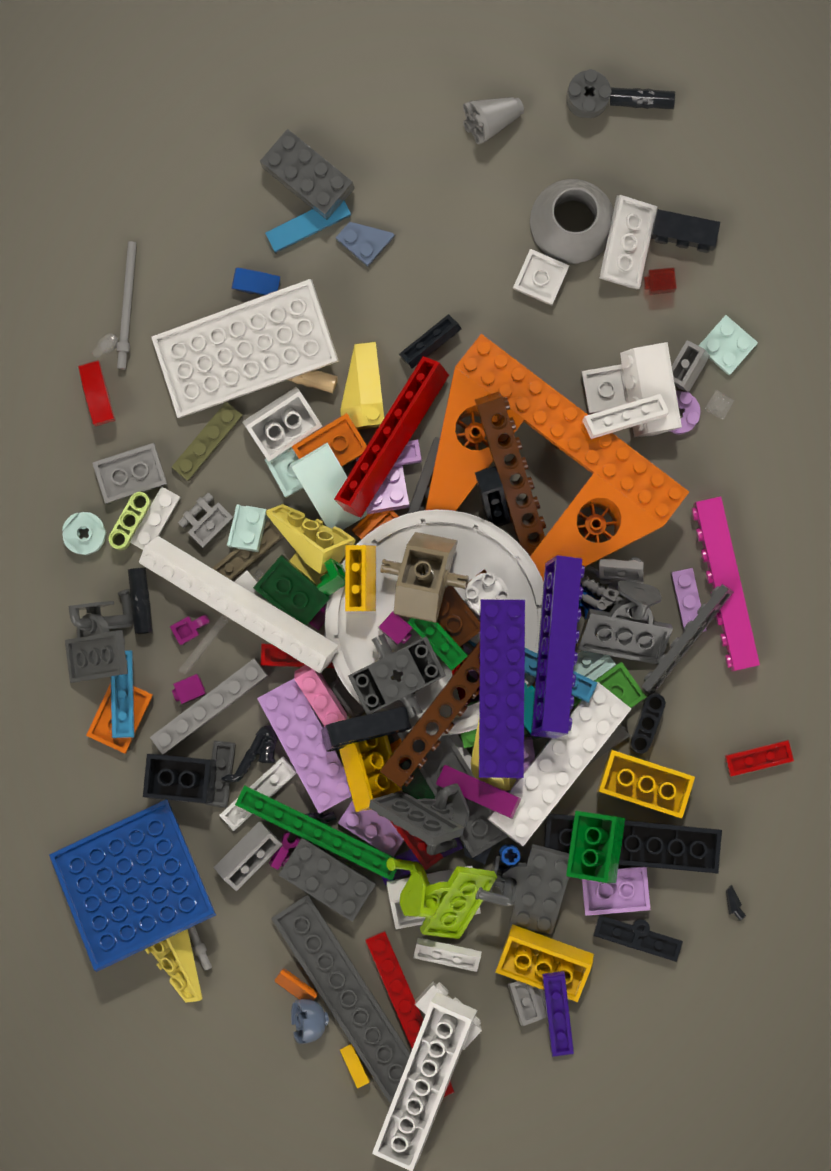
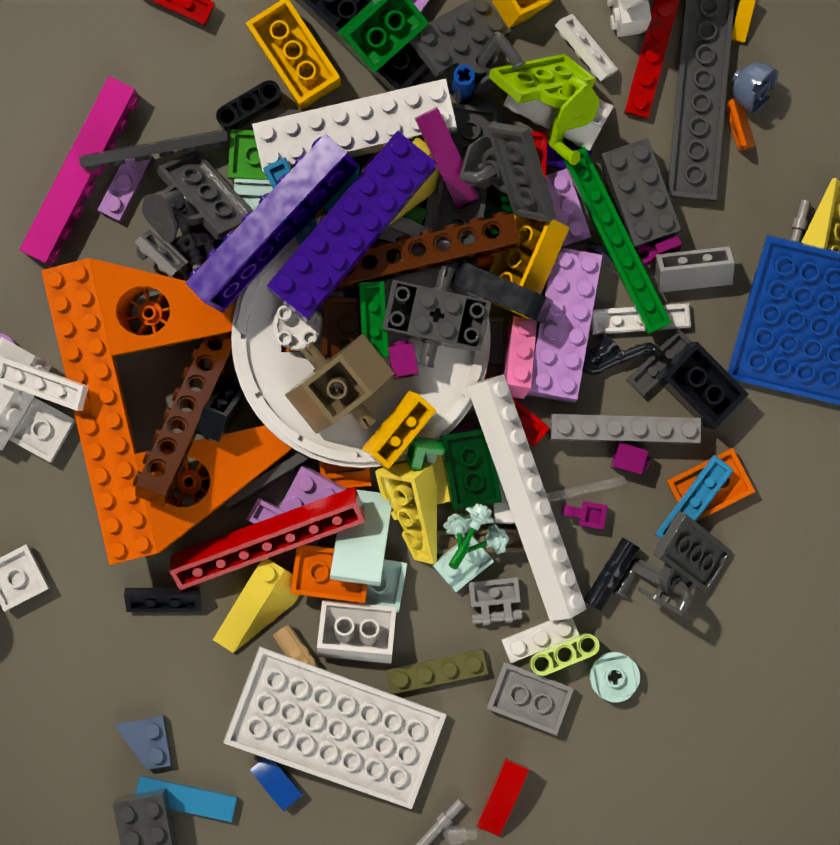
camera: 145 degrees left, 0 degrees up
(261, 564) = (460, 525): none -> light aqua plant

